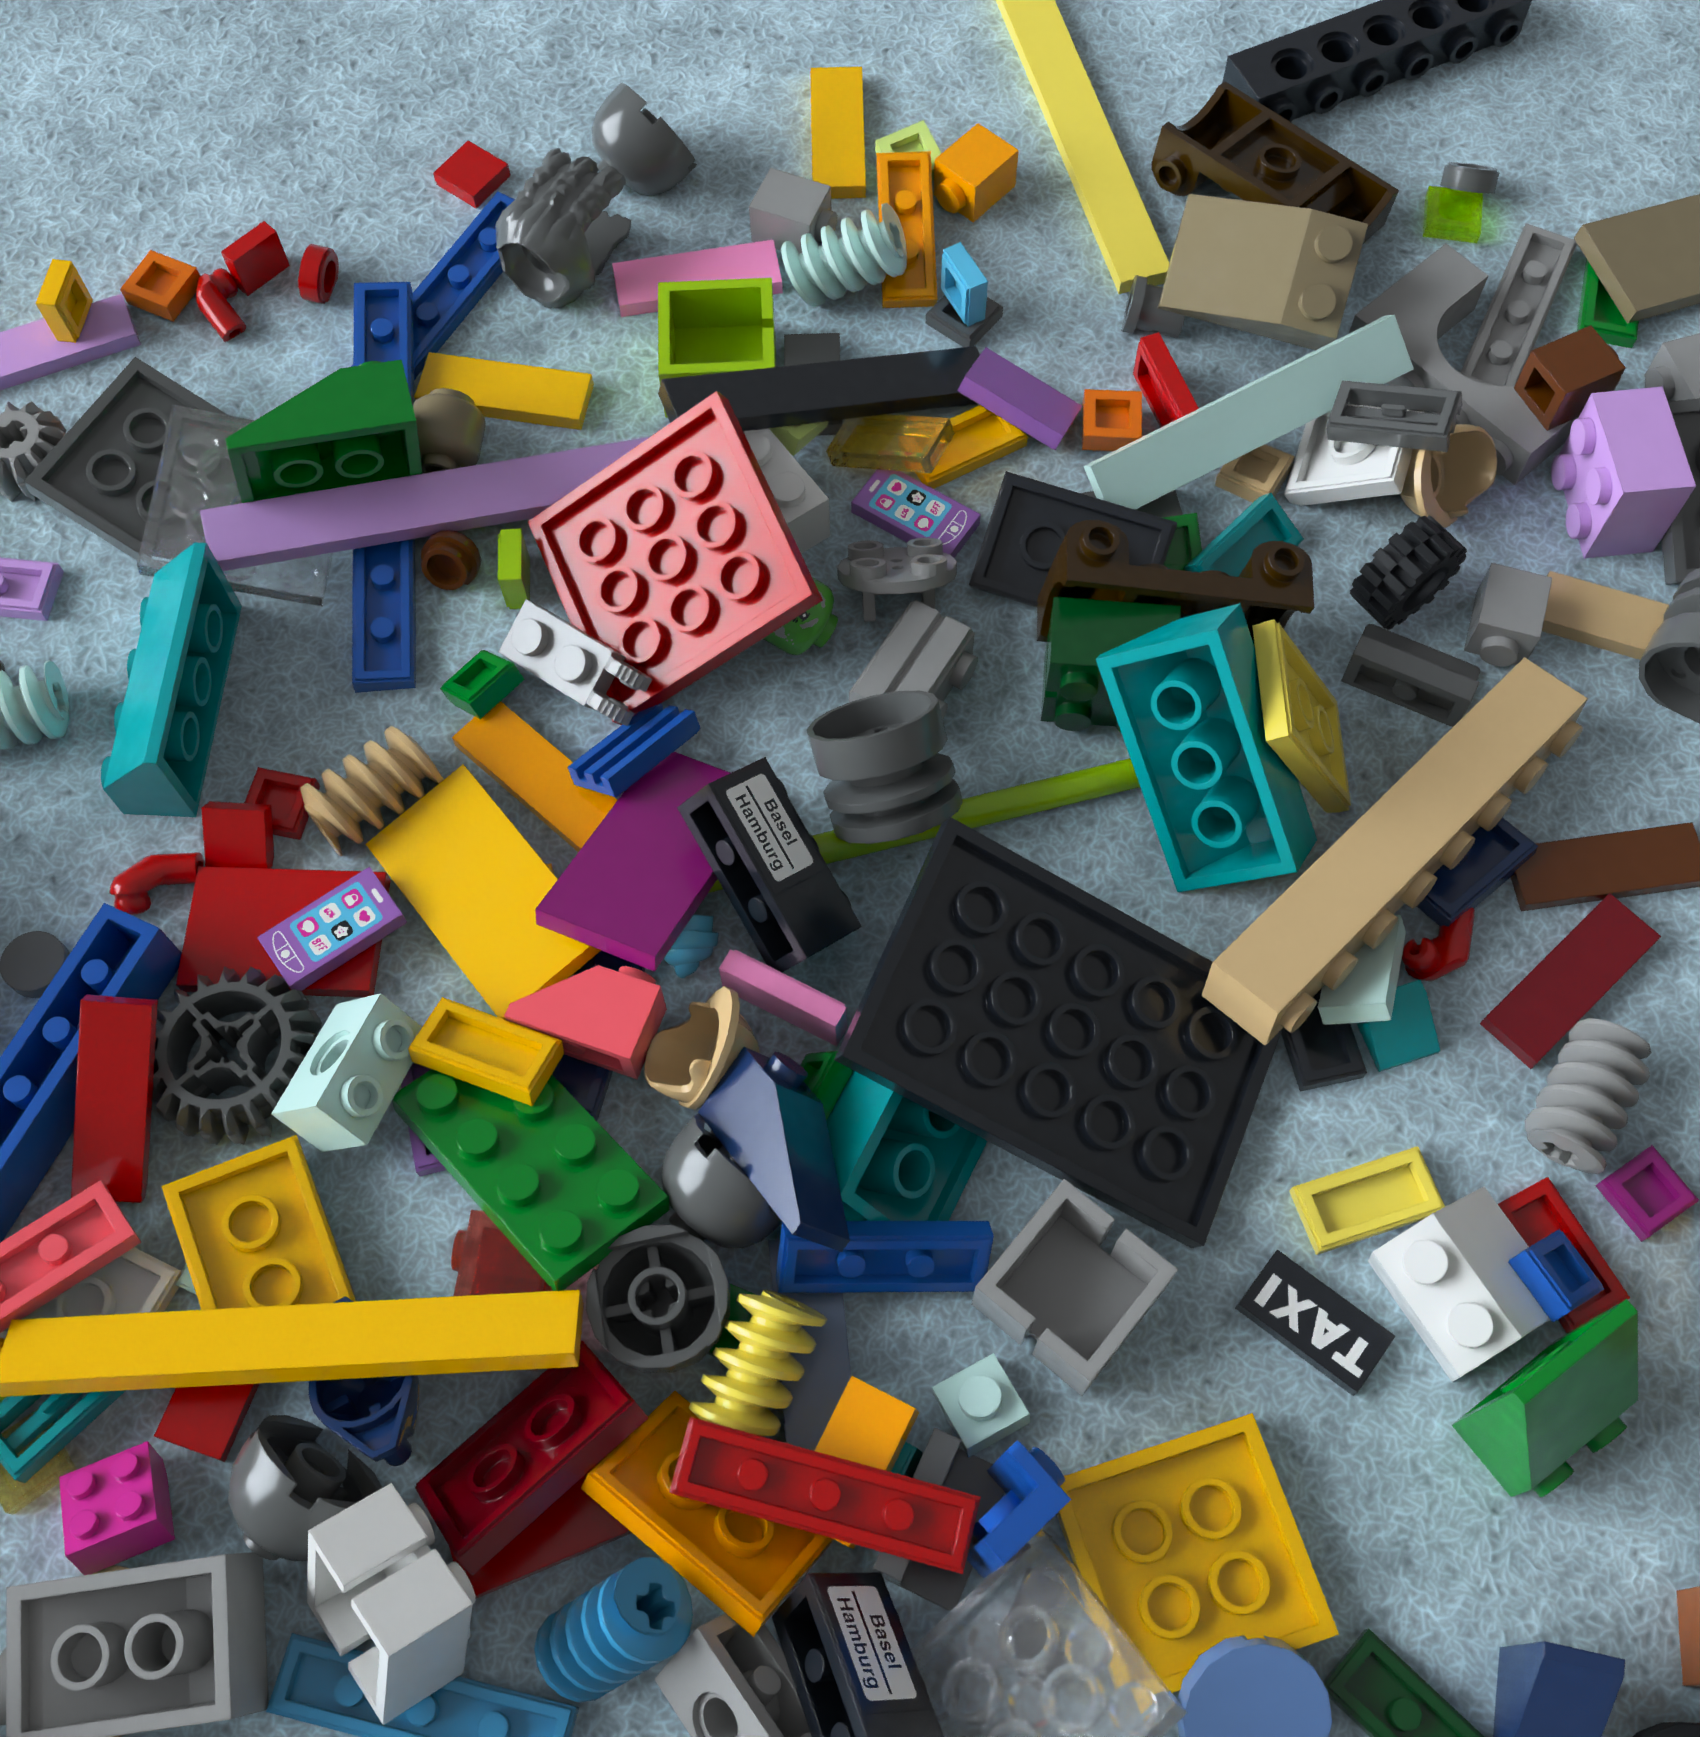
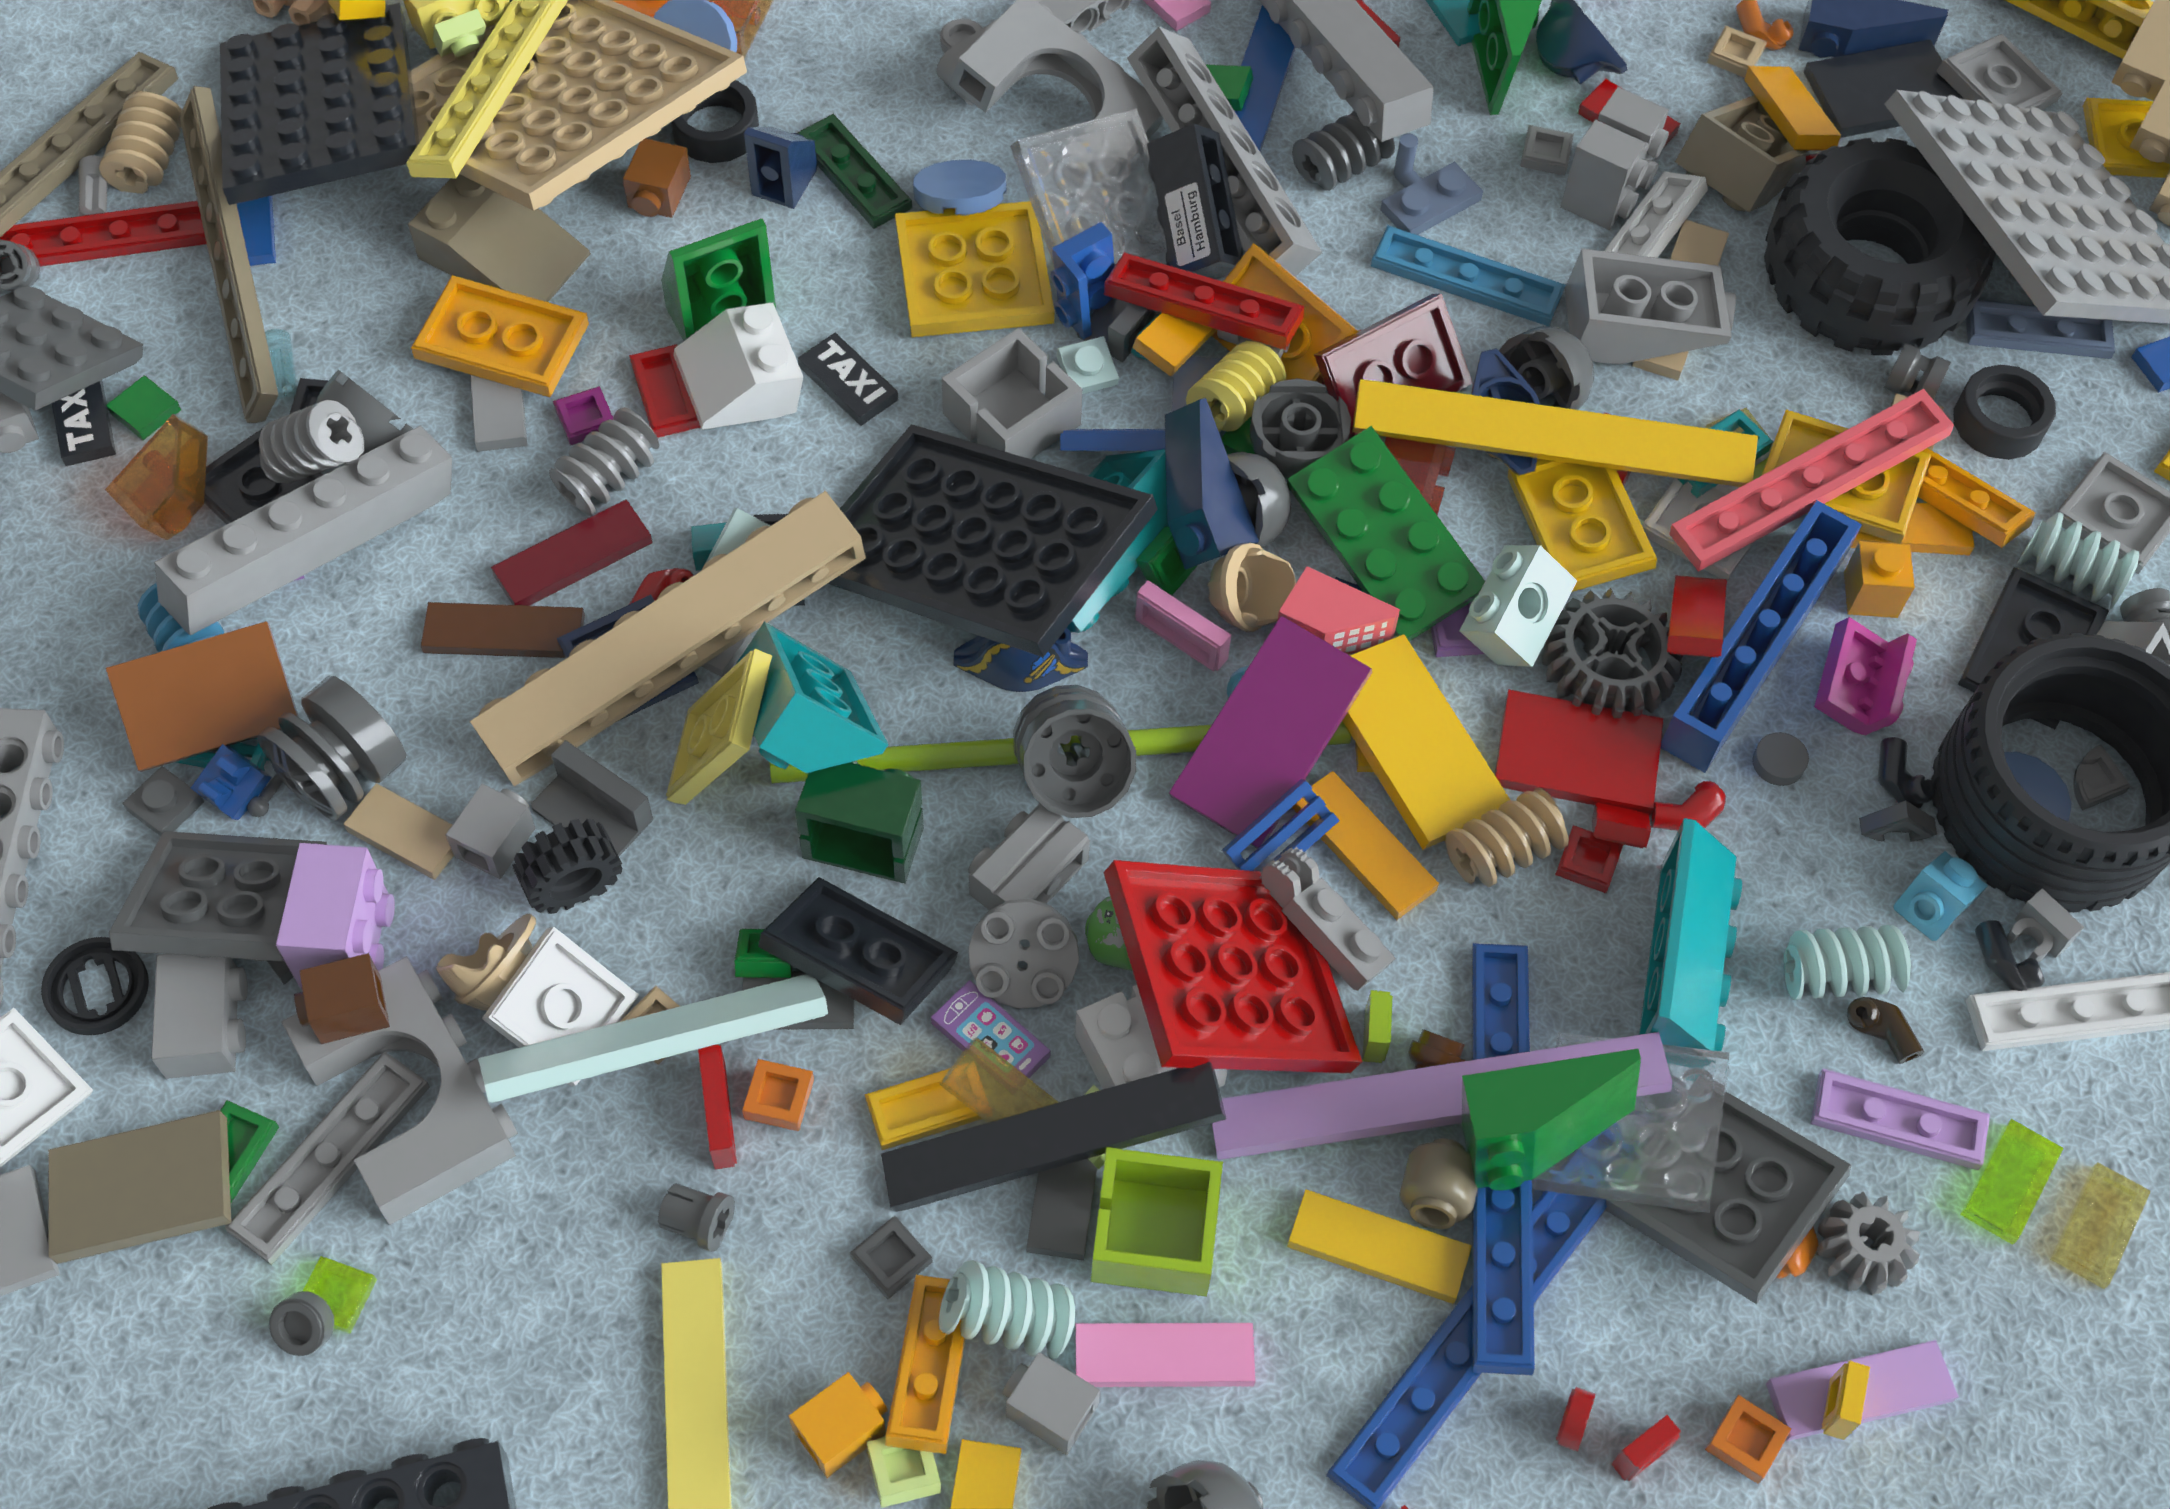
camera: 175 degrees left, 5 degrees down
(116, 1509) = (1671, 390): dark pink piece -> none
(212, 301) = (1690, 1407): red arm -> none
(332, 930) = (1537, 728): tile -> none
(384, 1583) = (1489, 298): white piece -> none
(482, 683) = (1411, 927): green tile -> none
(486, 1051) = (1422, 598): yellow tile -> none
(557, 230) = (1307, 1399): dark grey piece -> none
(615, 1630) = (1346, 267): dark azure piece -> none
(769, 865) = (1179, 697): black brick -> none
(963, 284) = (891, 1250): medium azure tile -> none
(1019, 398) = (863, 1126): medium lavender tile -> none
(1096, 567) = (731, 837): dark brown piece -> none
(1234, 545) = (699, 934): teal tile -> none
(1263, 268) = (583, 1179): dark tan slope -> none
(1266, 162) = (520, 1349): dark brown piece -> none
(1366, 1200) = (783, 442): light yellow tile -> none
(1392, 422) = (515, 1001): dark grey tile -> none
(1556, 1275) = (680, 358): blue tile -> none

